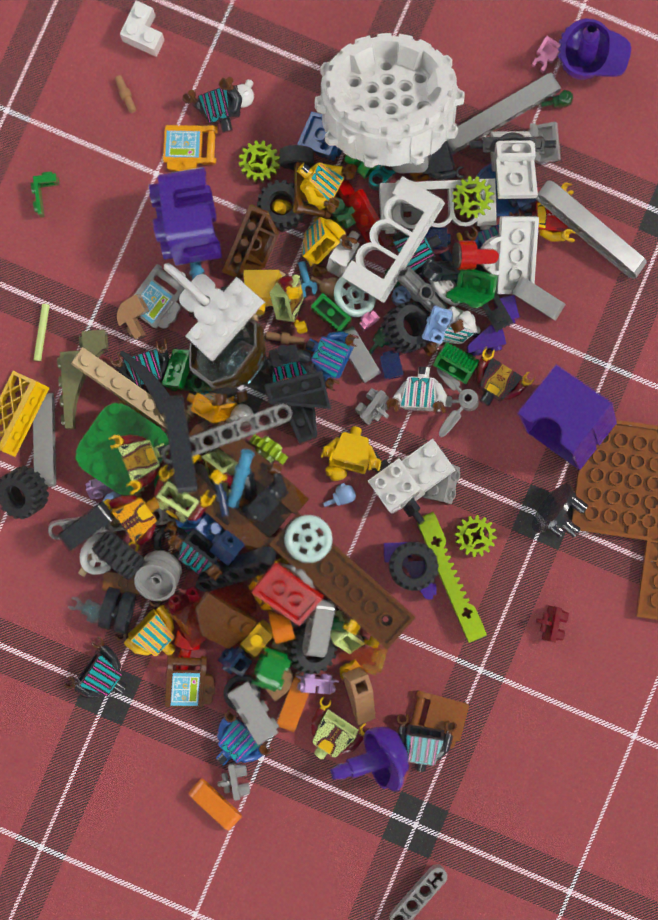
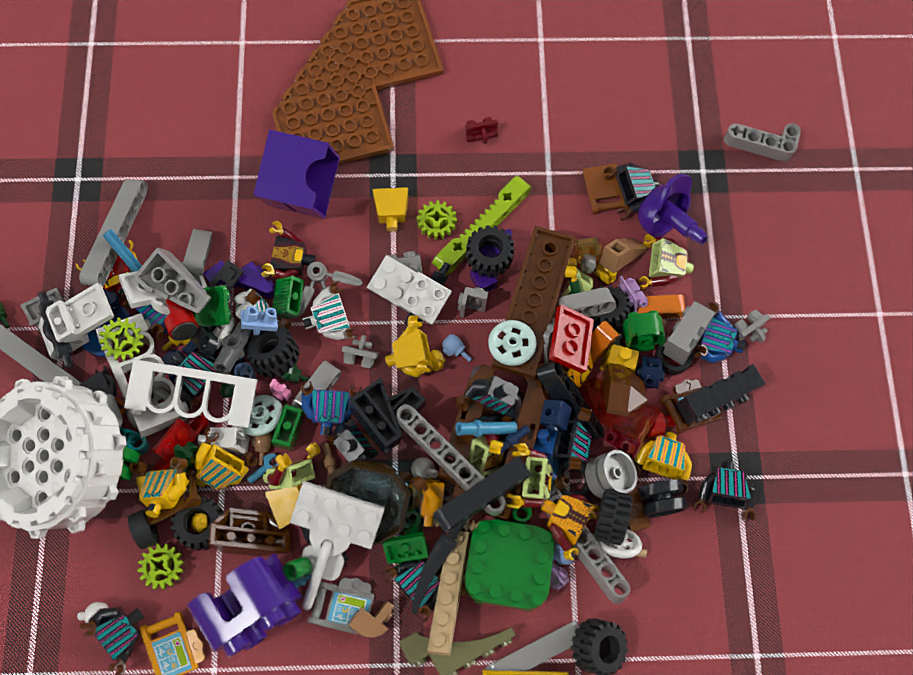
camera: 115 degrees left, 15 degrees down
(86, 526) = (602, 560): black beam -> none
(90, 609) = (673, 528): clear light blue piece -> none
(139, 458) = (513, 537): torso -> none
(182, 710) = (720, 395): none -> black wedge
(198, 269) = (297, 568): none -> green beam
(215, 804) = (781, 336): orange beam -> none
(268, 449) = (444, 423): lime gear -> none
(314, 137) = (113, 518): blue plate -> none
(363, 655) = (588, 263): none -> light grey tile
(376, 535) = (472, 299): none -> light grey bracket
(391, 365) = (315, 354): clear blue brick -> none
(508, 498) = (391, 206): none -> yellow torso
(511, 262) = (171, 280): none -> light grey wedge
(553, 511) = (384, 160): black piece -> none
(561, 230) = (121, 249): none -> dark azure axle

